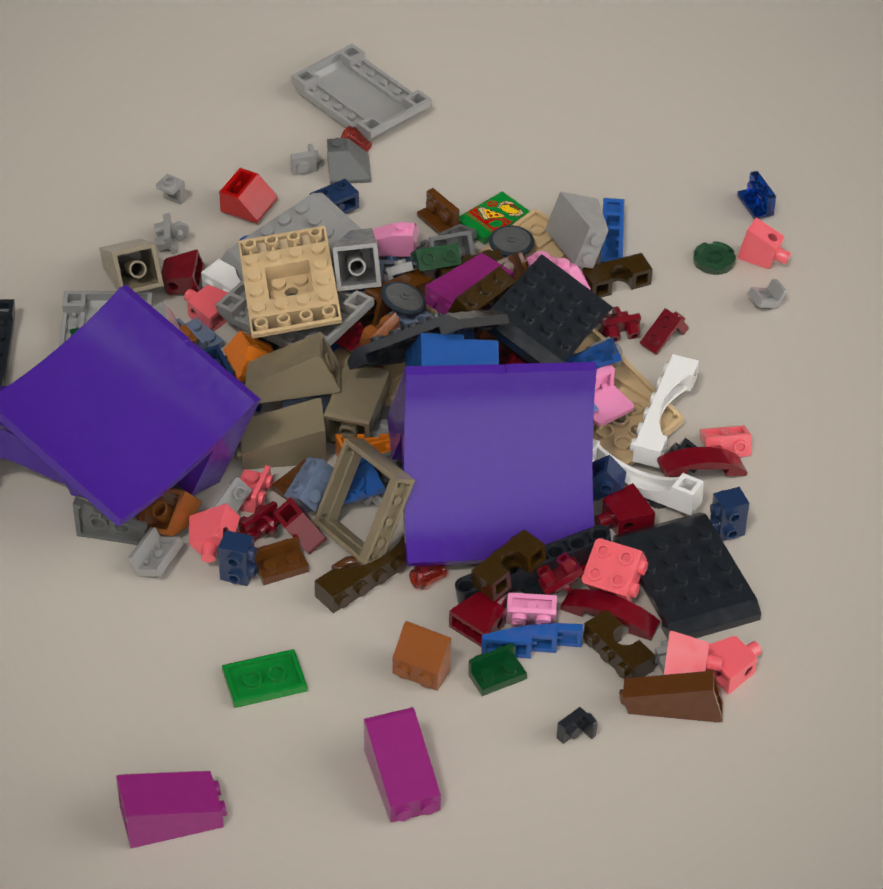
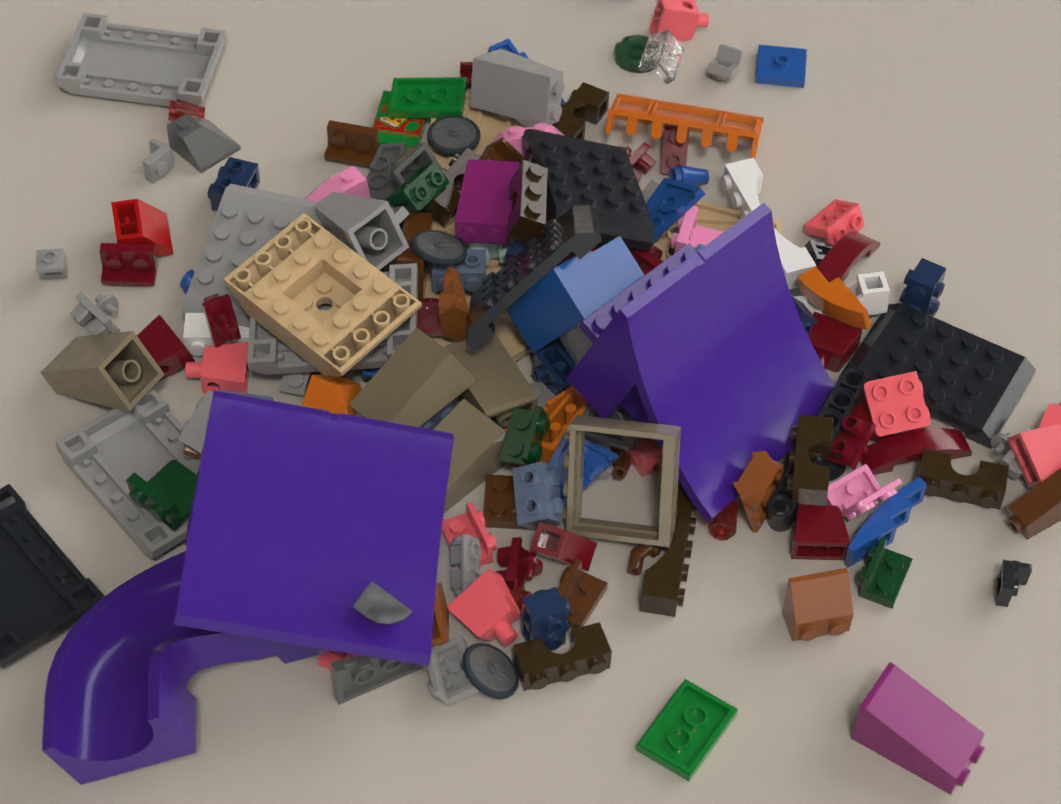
camera: 40 degrees left, 5 degrees up
(114, 468) = (380, 606): none -> black brick
(178, 568) = (490, 670): none -> dark grey wheel
(218, 213) = (128, 264): none -> dark red bracket
(224, 269) = (220, 319): none -> dark red hips
(247, 596) = (541, 667): none -> dark brown arch
(331, 446) = (524, 437): none -> dark green bracket
(457, 561) = (758, 486): none -> dark orange slope
(521, 209) = (427, 97): none -> green tile
(649, 478) = (833, 299): none -> orange slope
(652, 354) = (689, 175): none -> blue cone
(724, 342) = (684, 116): none -> orange window
(727, 266) = (662, 54): none -> clear bracket
(814, 319) = (781, 66): none -> blue plate

